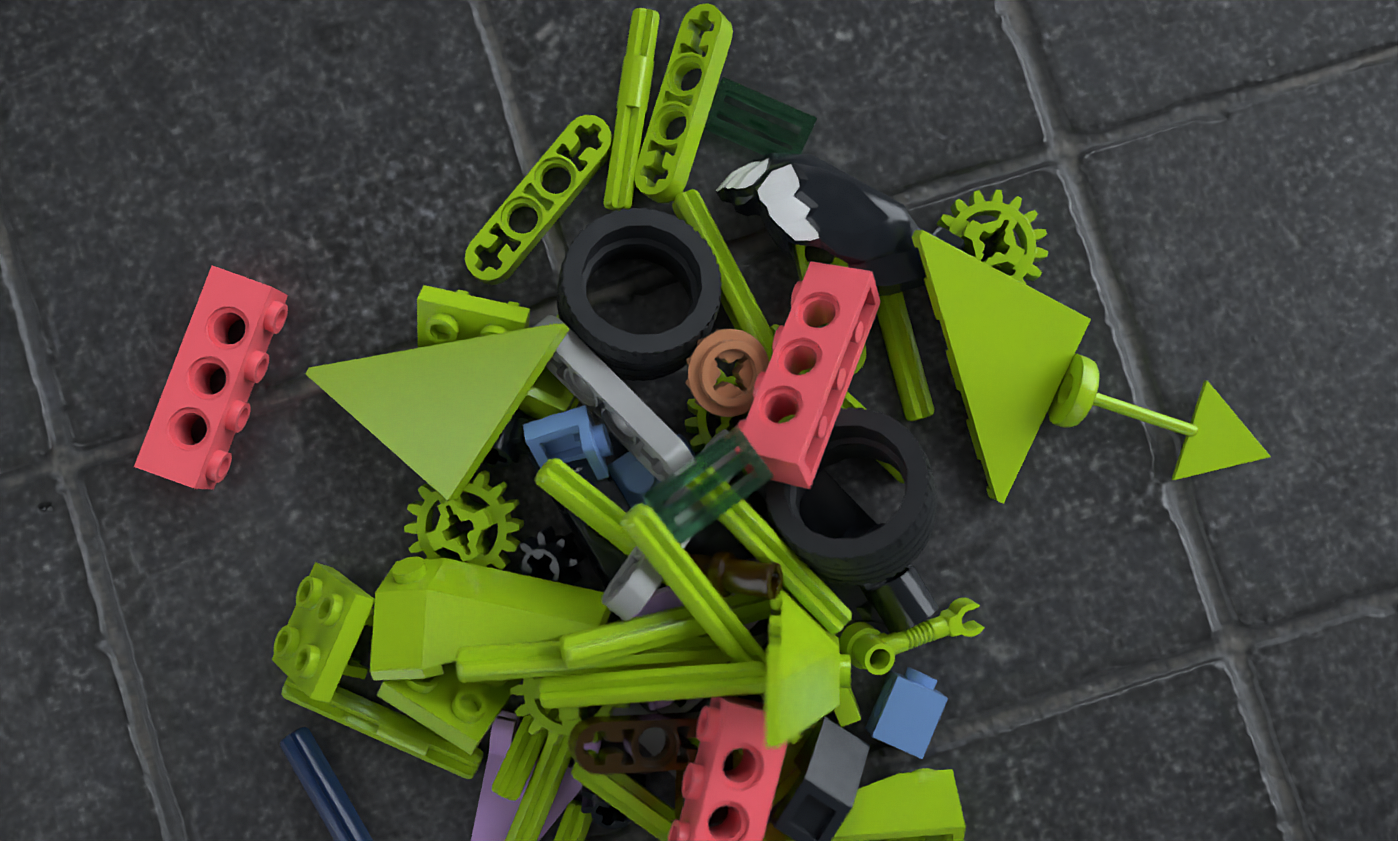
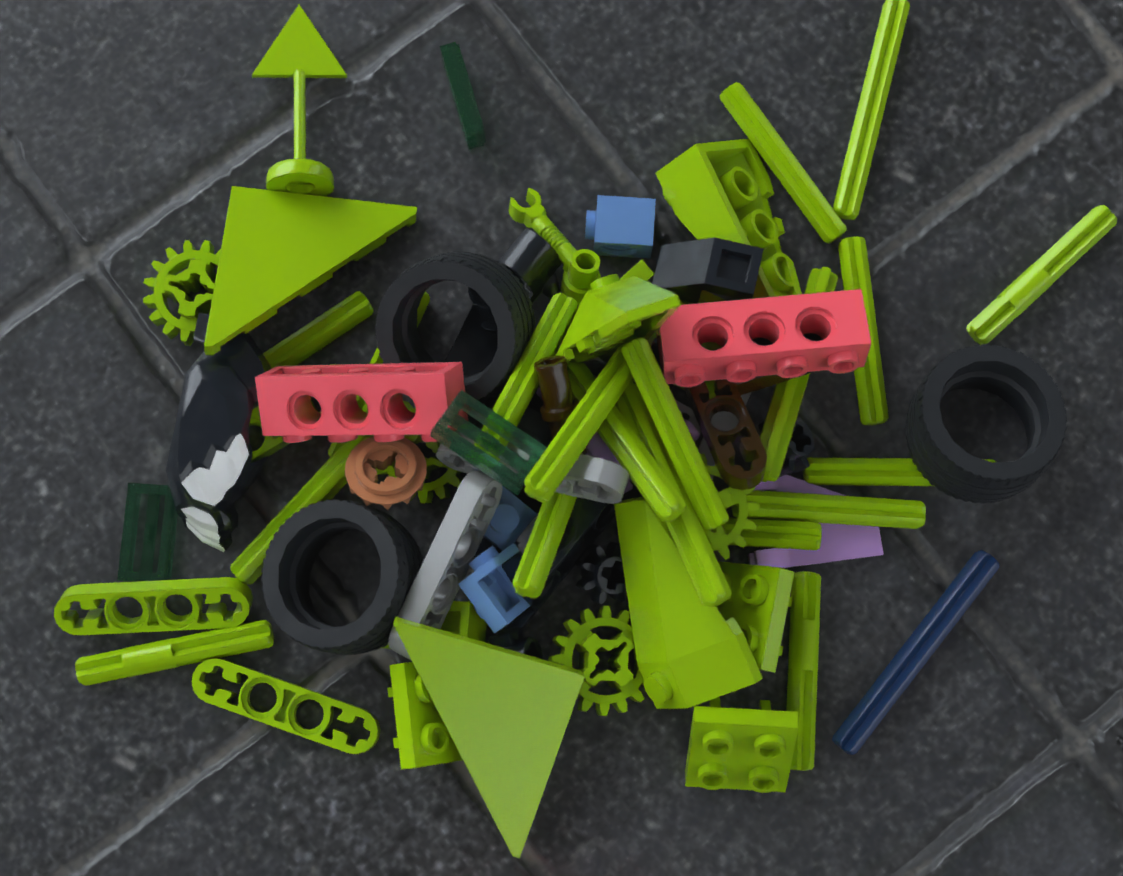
camera: 110 degrees left, 5 degrees down
(1109, 594) = (463, 95): none -> clear green tile

